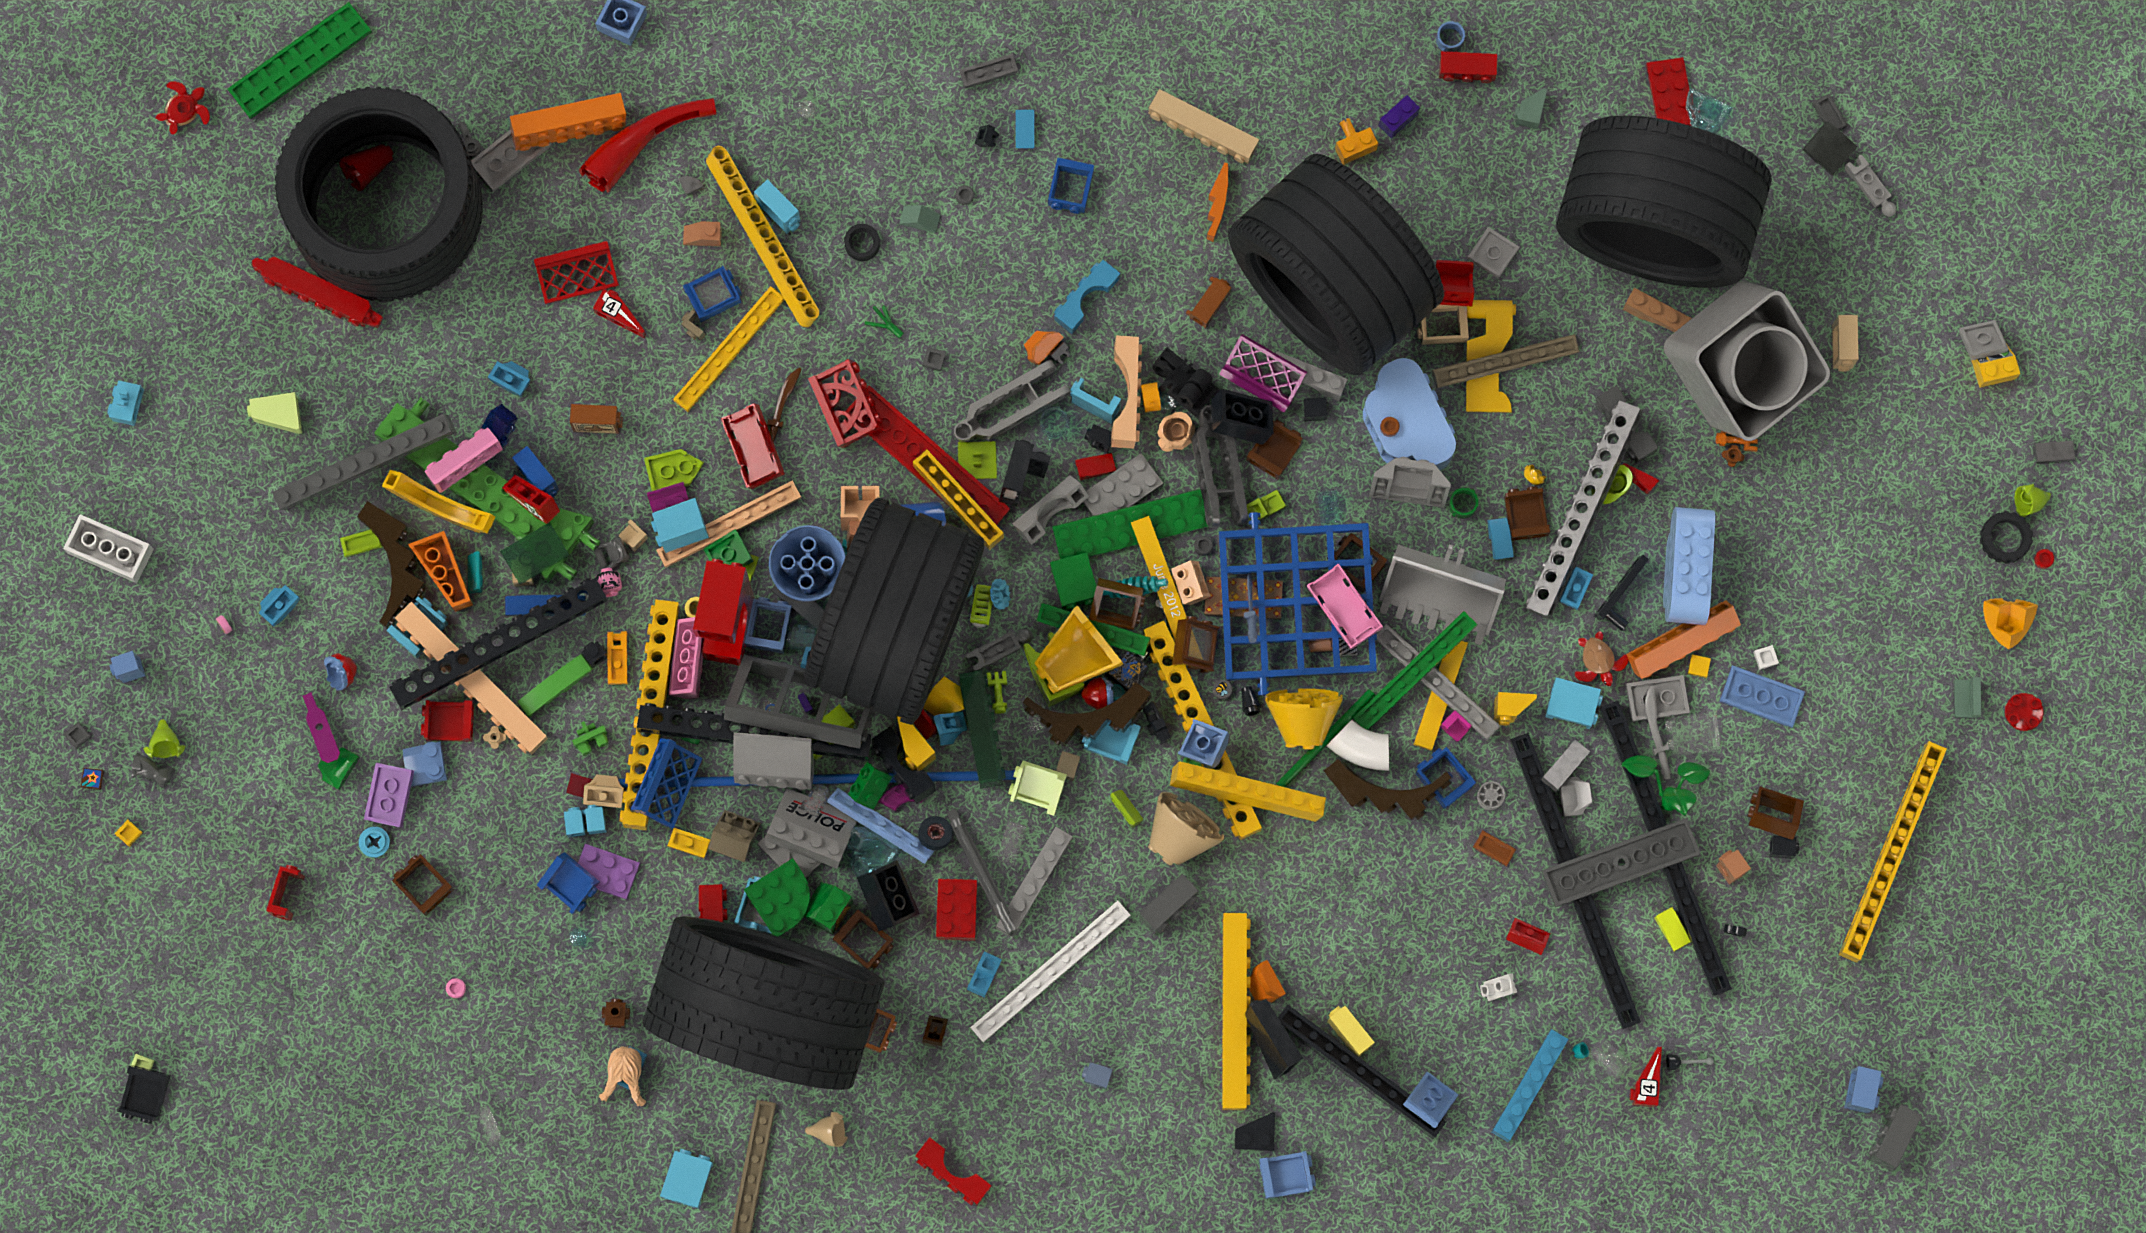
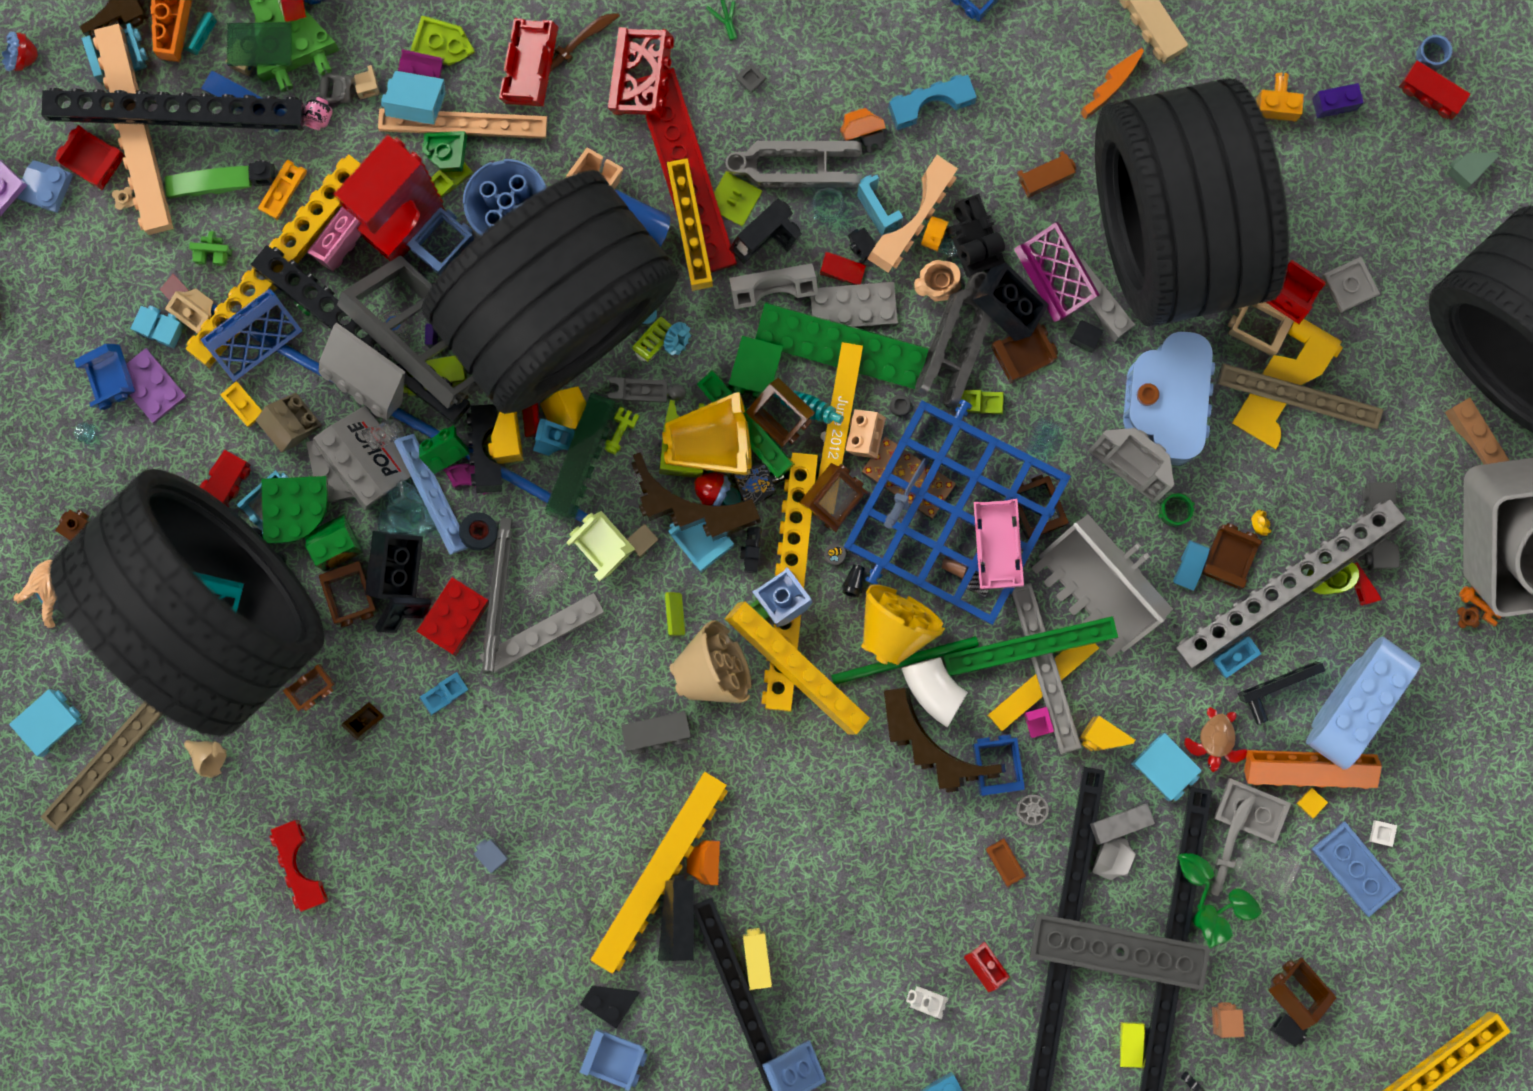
camera: 30 degrees right, 5 degrees up
(912, 927) = (401, 608): none -> black tile
(1050, 971) = (507, 728): white plate -> none

